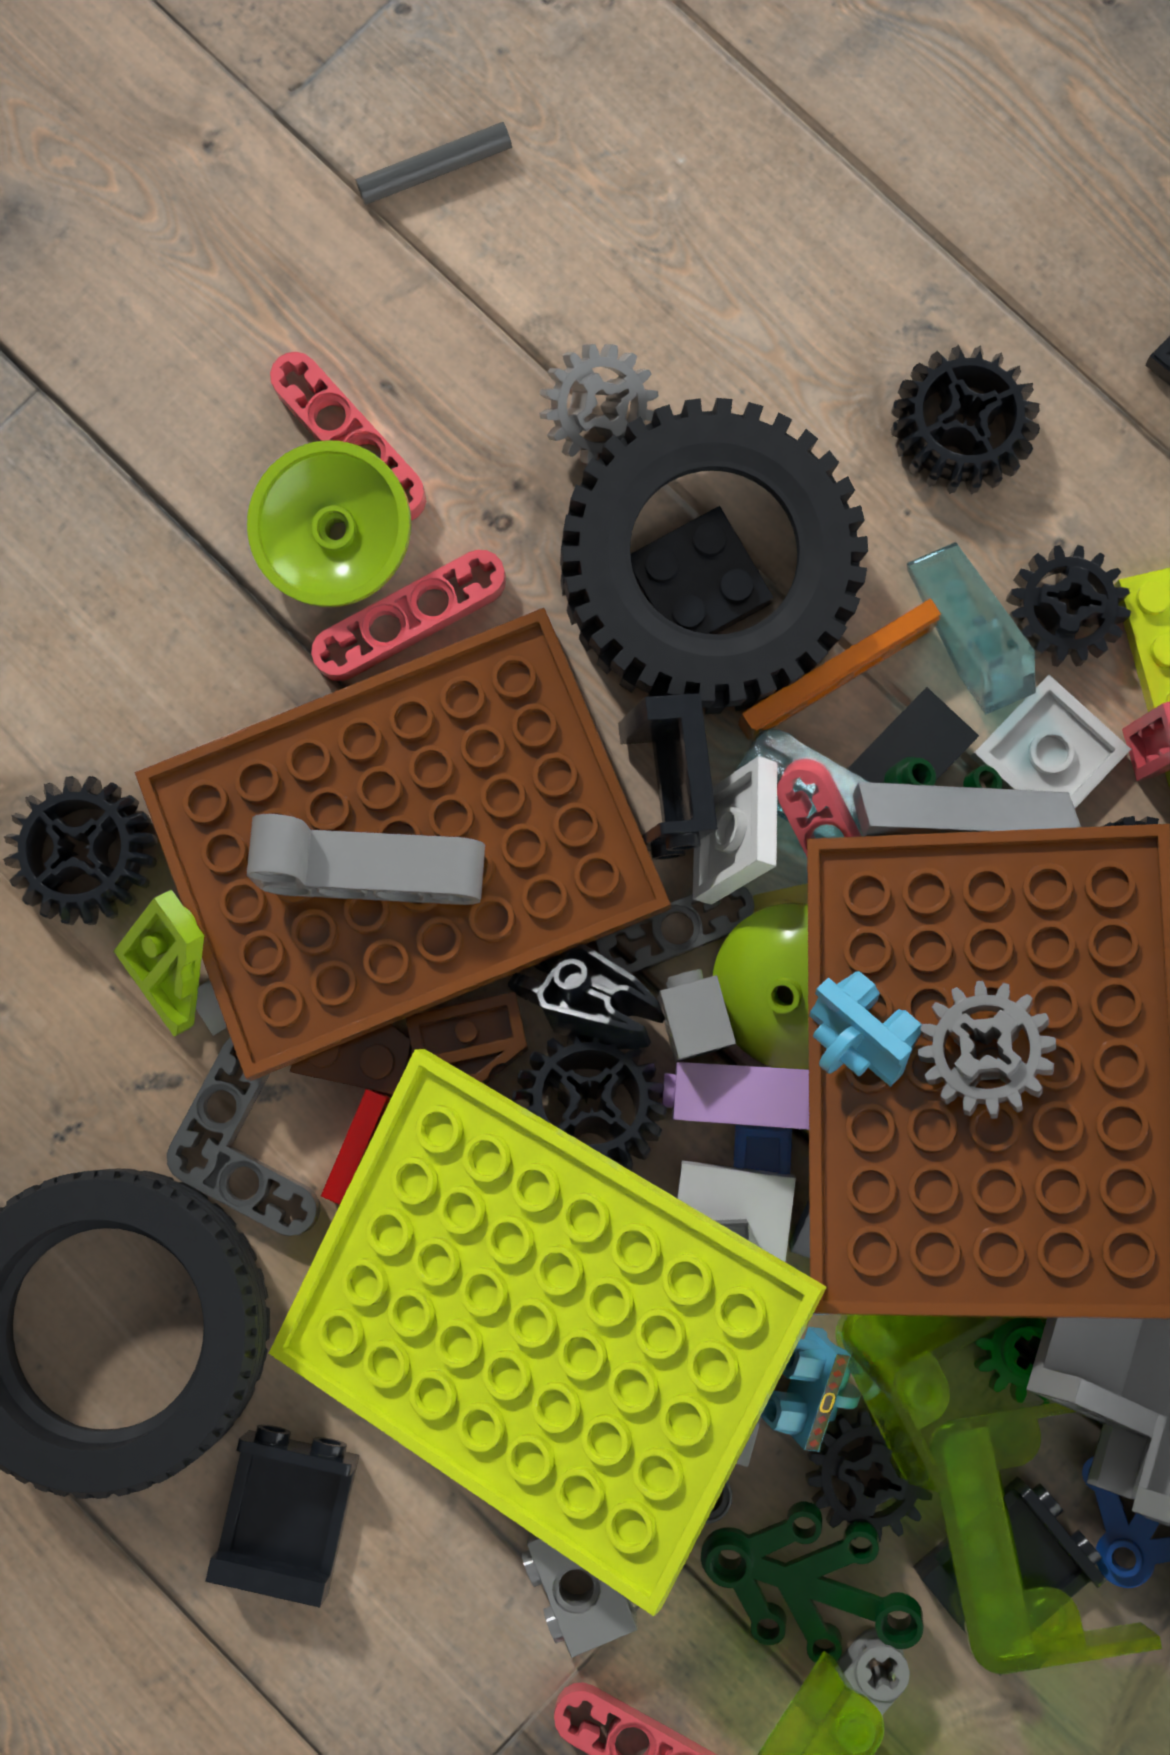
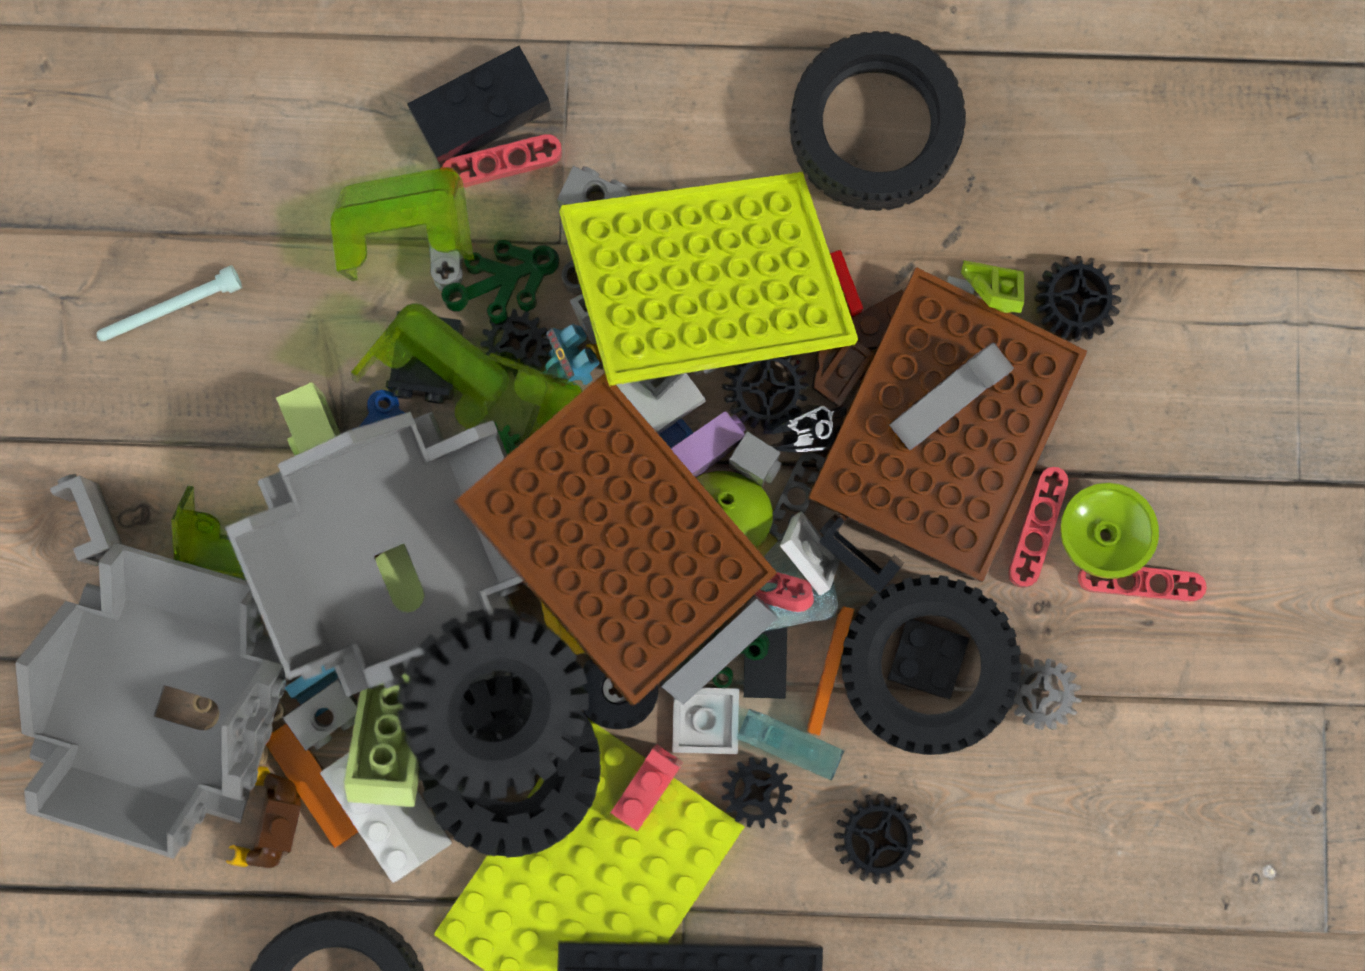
camera: 130 degrees right, 0 degrees up
(225, 1159) = (894, 231): dark grey beam -> none
(284, 1516) = (735, 117): black panel -> none
(434, 163) = (1227, 745): dark grey piece -> none
(856, 1035) = (699, 505): medium azure hips -> none
(1003, 1027) = (627, 550): light grey gear -> none

